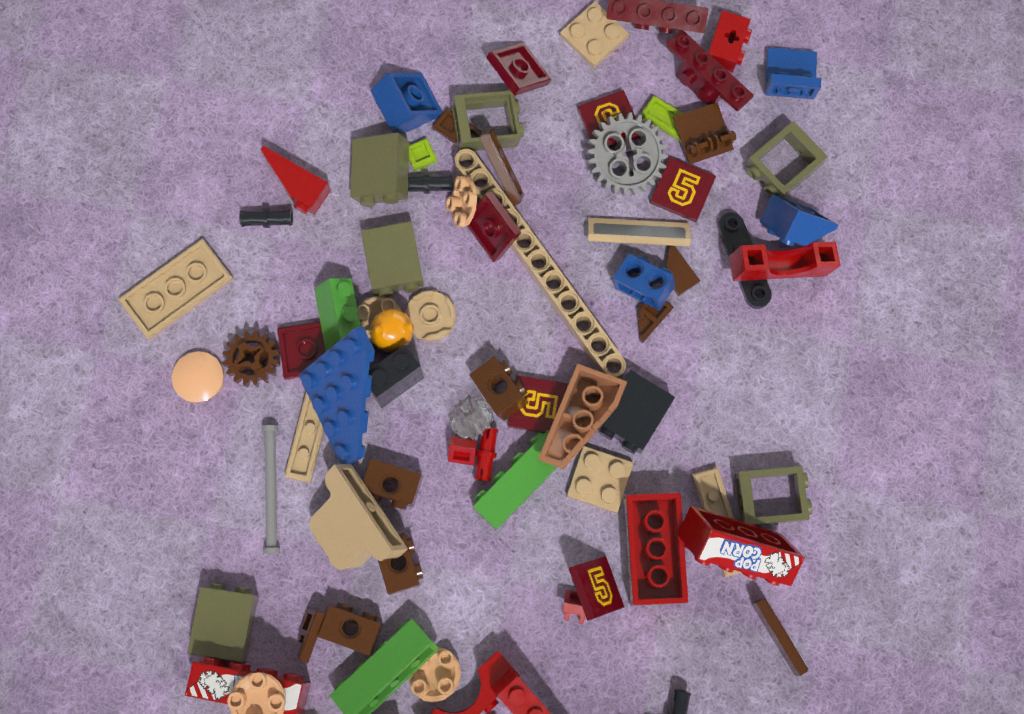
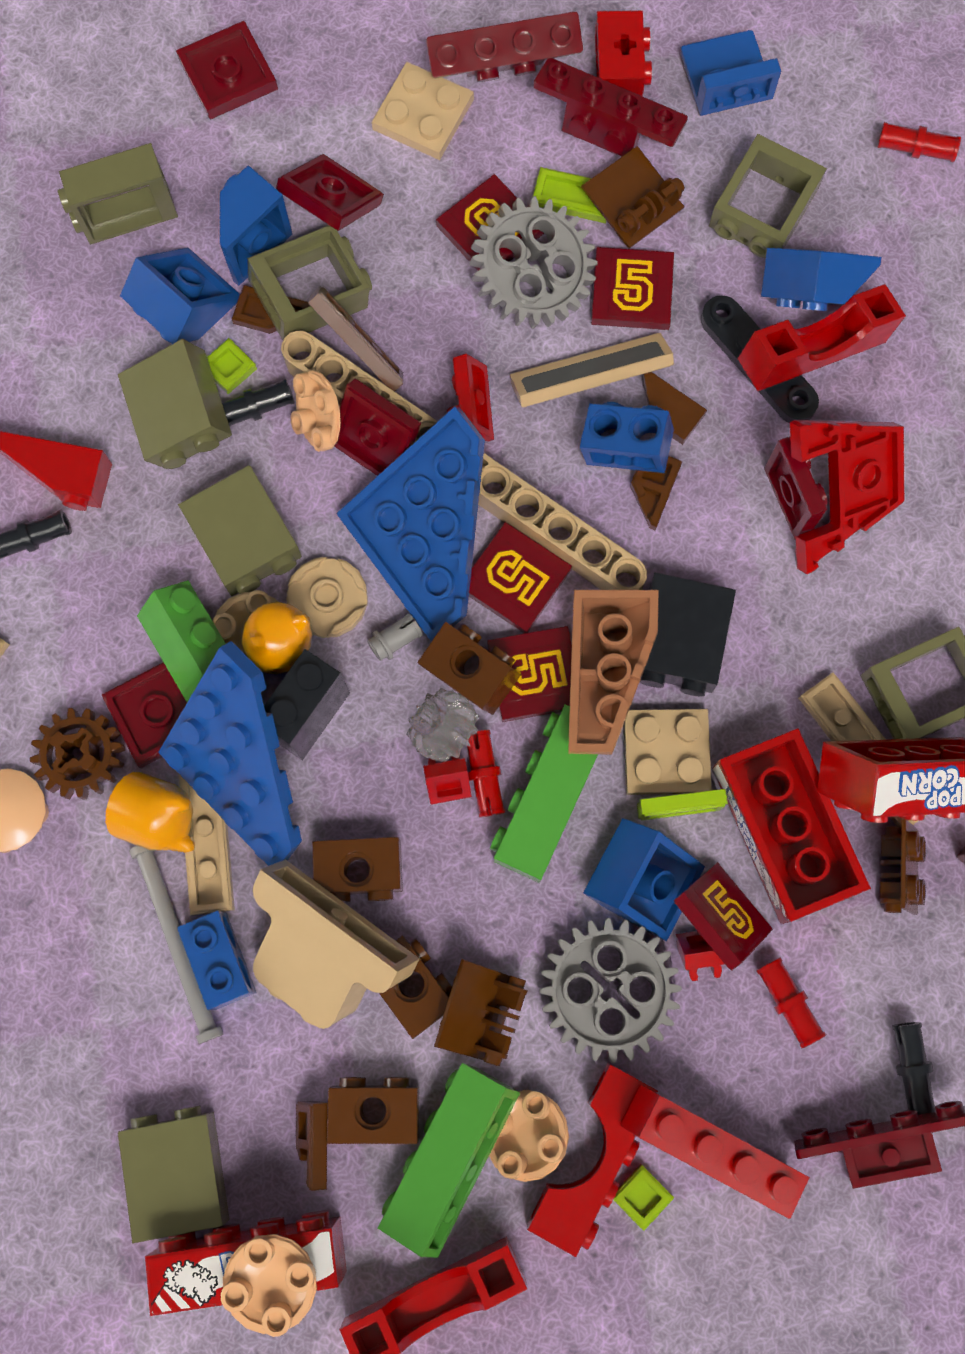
camera: 15 degrees left, 0 degrees up
(282, 409) = (150, 813): none -> light orange piece
(290, 508) = (216, 960): none -> blue brick
(390, 28) = (112, 177): none -> olive window
(432, 592) = (478, 1013): none -> reddish brown hinge
(461, 354) = (394, 637): none -> light grey pin
(464, 72) = (250, 220): none -> blue slope
(491, 619) = (636, 960): none -> light grey gear
(502, 290) = (422, 521): none -> blue plate
(547, 343) = (516, 578): none -> dark red tile
(556, 548) = (643, 877): none -> blue slope
(560, 227) = (473, 393): none -> red plate
(596, 514) = (681, 804): none -> lime tile
(618, 653) = (791, 1003): none -> red pin
(722, 589) = (911, 847): none -> reddish brown hinge
(734, 354) = (795, 489): none -> dark red plate
(778, 354) = (863, 479): none -> red wing
(894, 157) = (919, 142): none -> red pin

